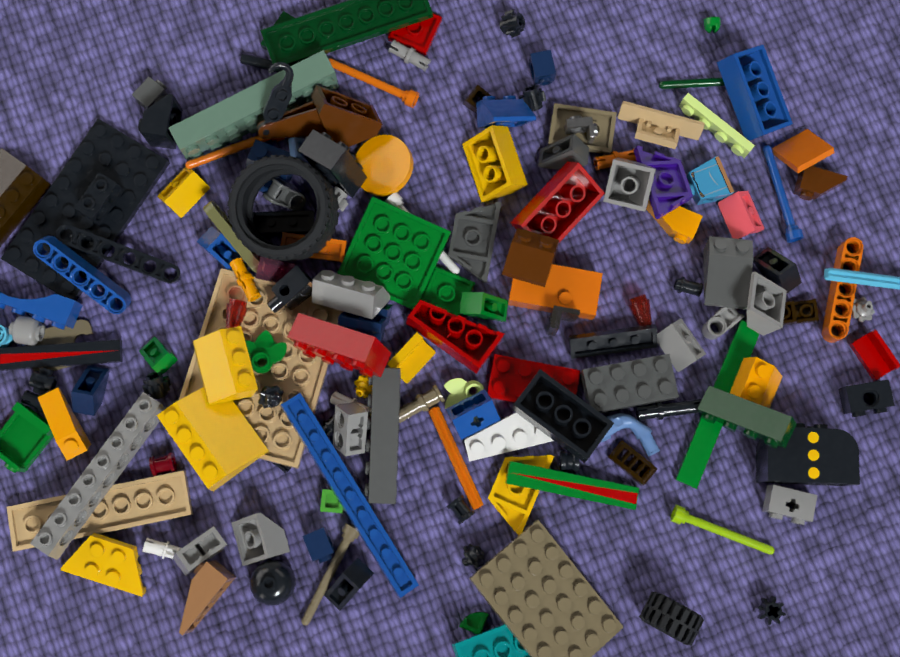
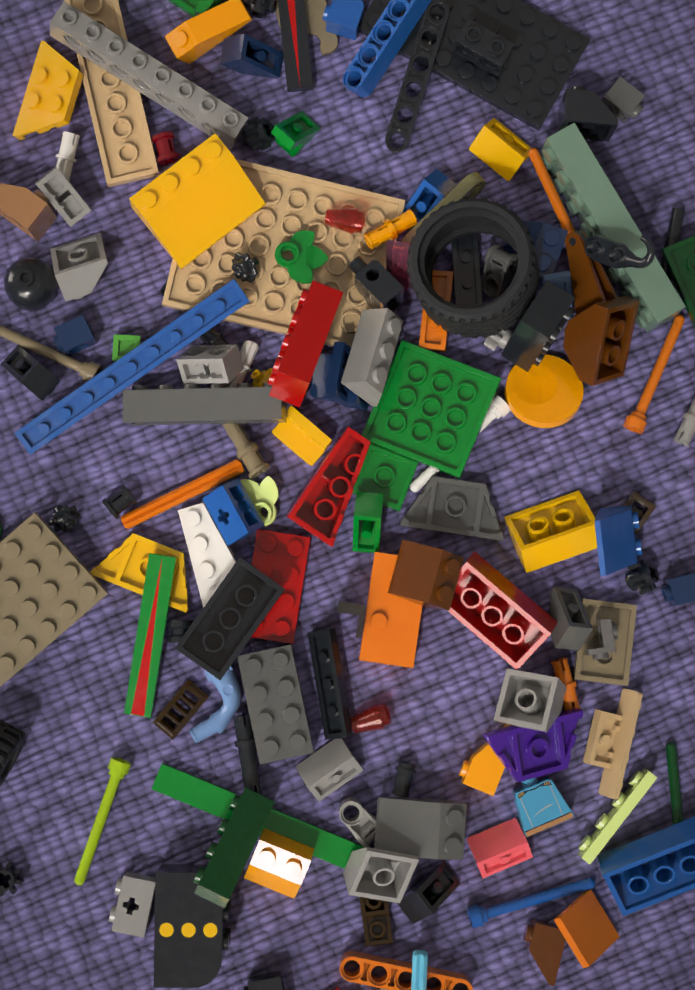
camera: 85 degrees right, 5 degrees up
(225, 365) = (279, 210): yellow slope -> none

